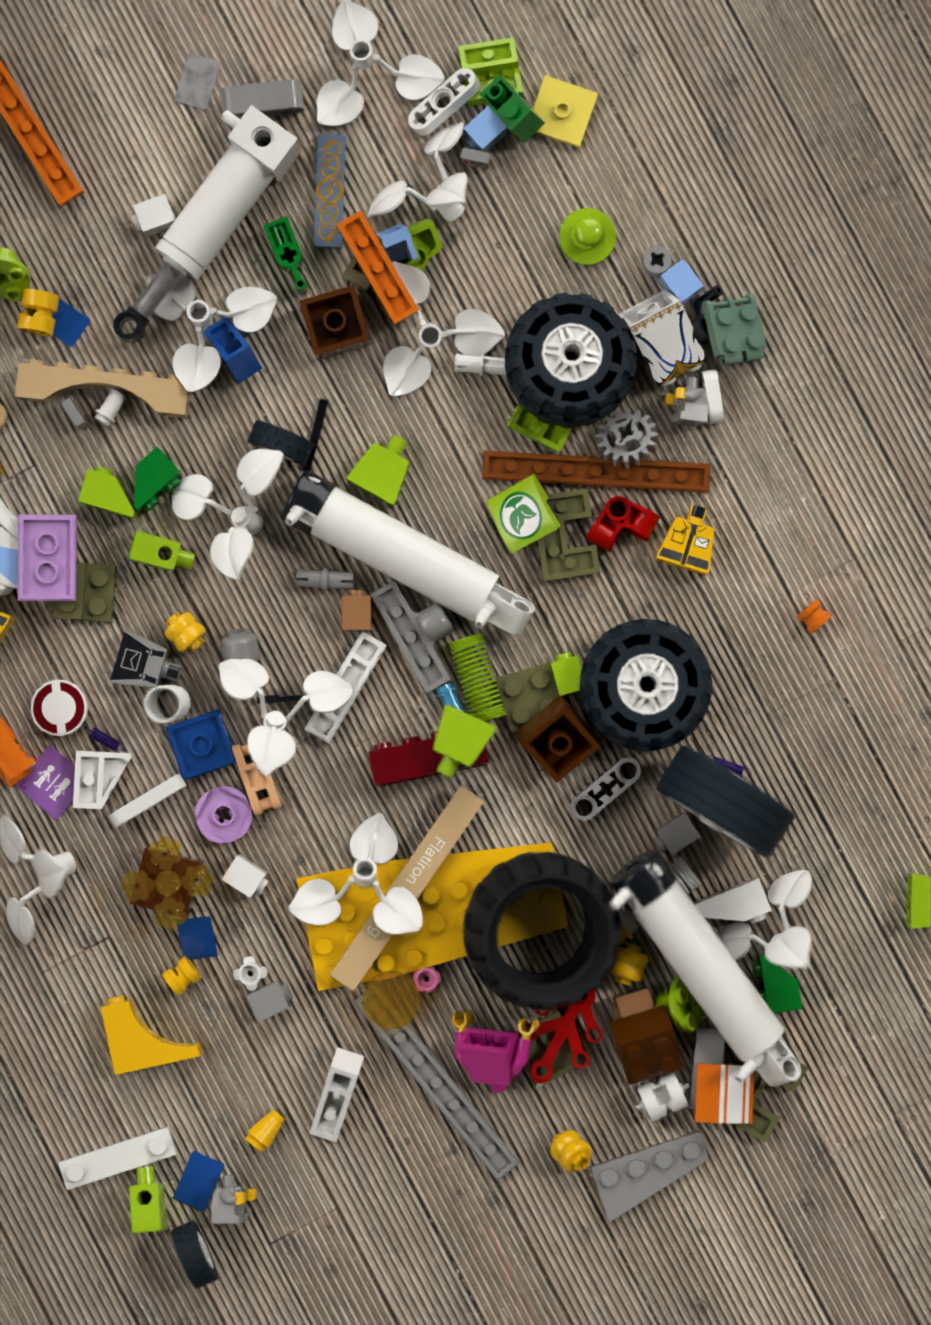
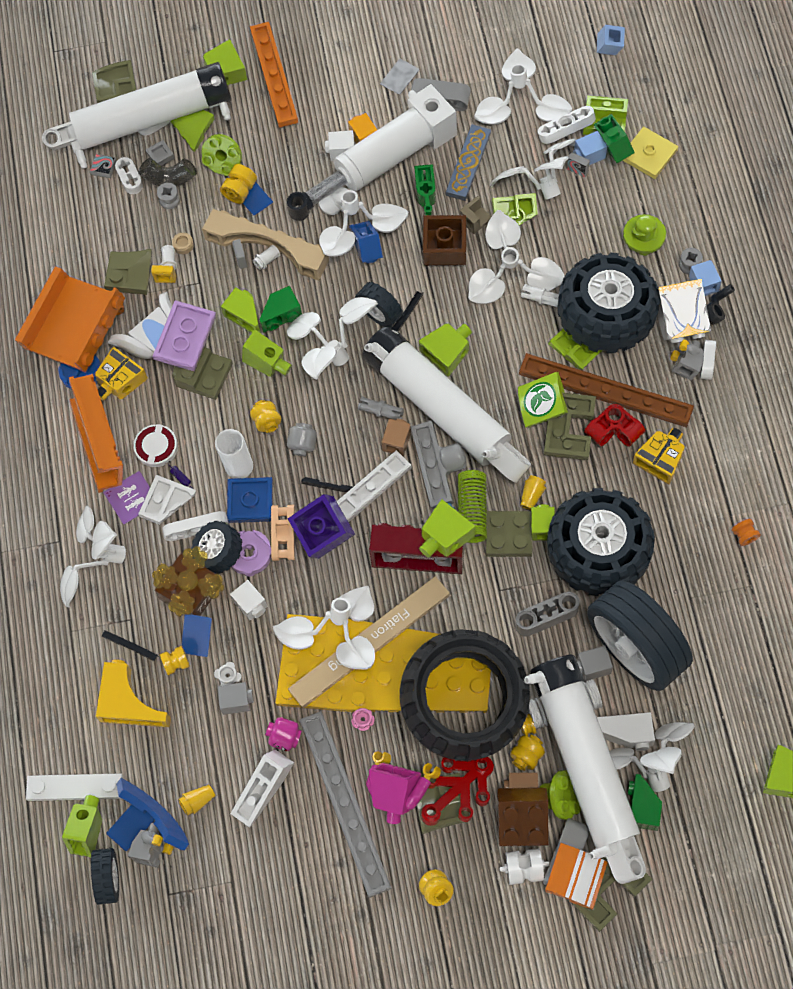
camera: 20 degrees right, 20 degrees down
(120, 970) = (129, 645): none -> black piece
(142, 663) = (225, 418): torso -> none
(176, 184) = (361, 126): none -> light orange brick
(185, 819) = (220, 543): none -> black wheel
(240, 1170) = (165, 823): none -> blue tile
(270, 744) = (304, 498): white plant -> none
(312, 764) = (321, 526): none -> dark purple brick
(340, 1026) = (283, 734): none -> dark pink head
(377, 267) = (486, 209): orange plate -> none
(391, 999) = (329, 724): clear yellow tile -> none
(397, 243) = (505, 200): light blue panel -> none
(544, 637) = (532, 491): none -> yellow cone
(558, 739) = (521, 562): reddish brown brick -> none
(627, 438) = (635, 369): light grey gear -> none
(640, 1174) = (488, 928): light grey wing -> none
(735, 331) = (737, 318): sand green plate -> none

